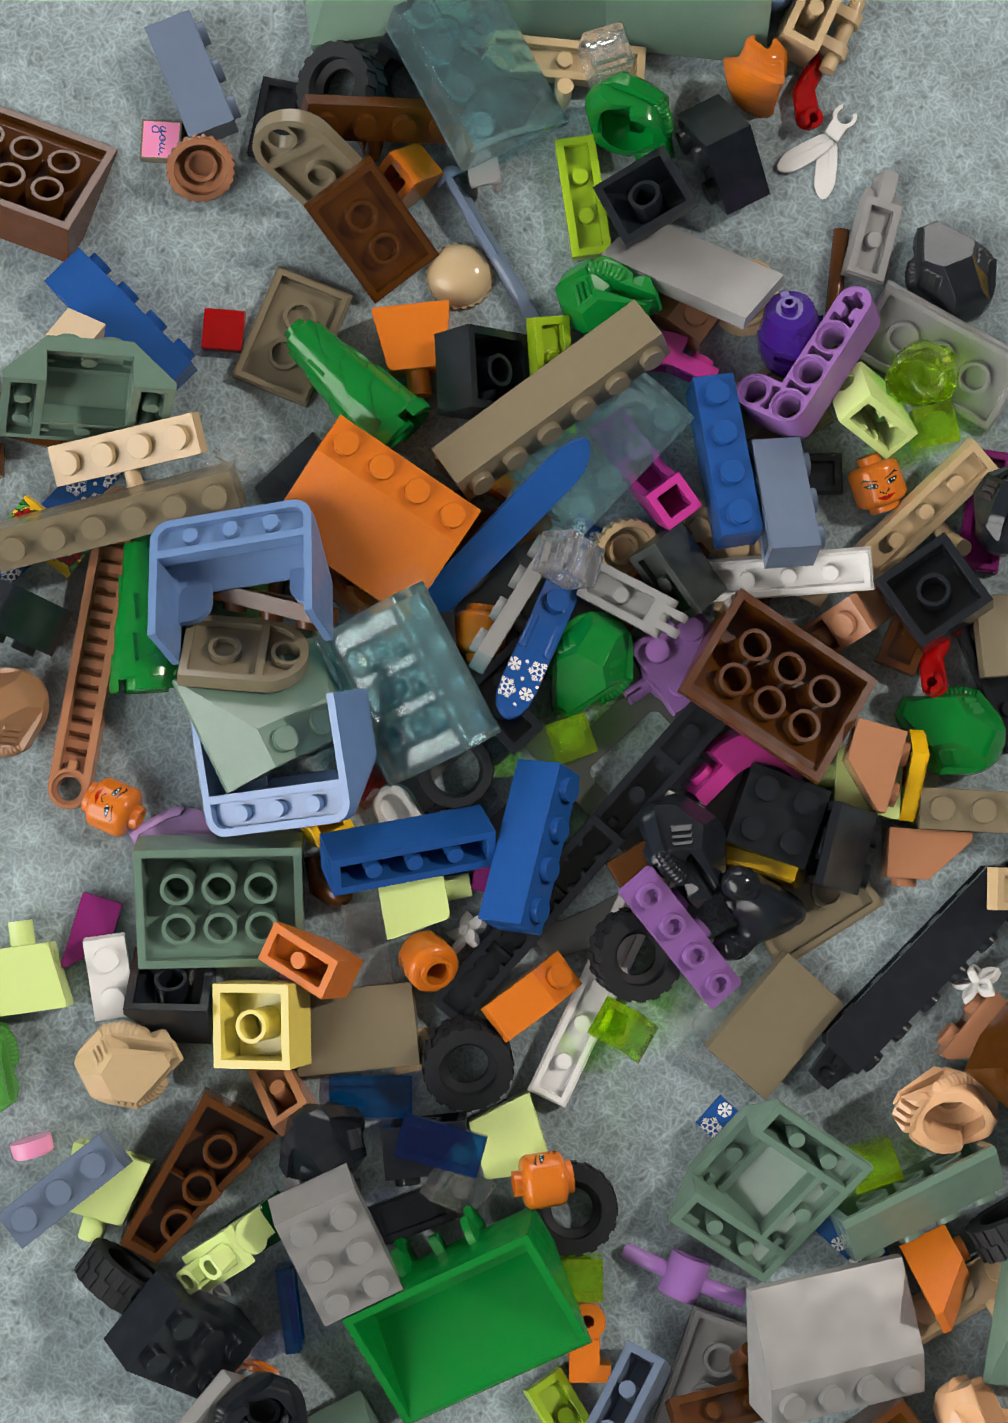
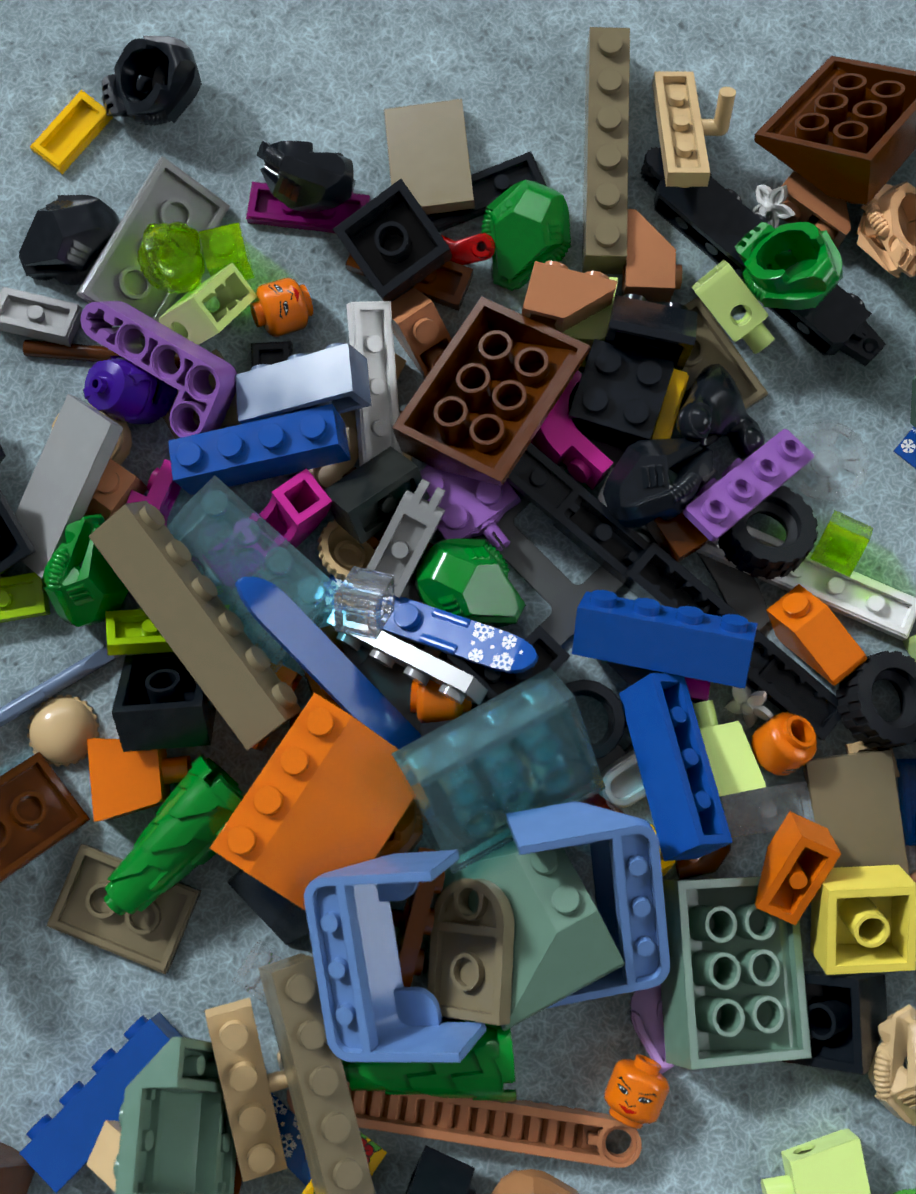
camera: 90 degrees left, 5 degrees down
(93, 918) = (765, 1110): magenta tile -> none
(107, 973) = (815, 1091): white plate -> none
(223, 330) = (116, 984): red tile -> none
(571, 739) = (549, 600): clear neon green brick -> none
(774, 1024) = (824, 397): dark tan tile -> none
(880, 924) = (721, 292): none -> yellowish green torso
(901, 986) = (794, 277): none -> green helmet
(914, 775) = (573, 259): yellow tile -> none
(928, 507) = (304, 255): tan plate -> none

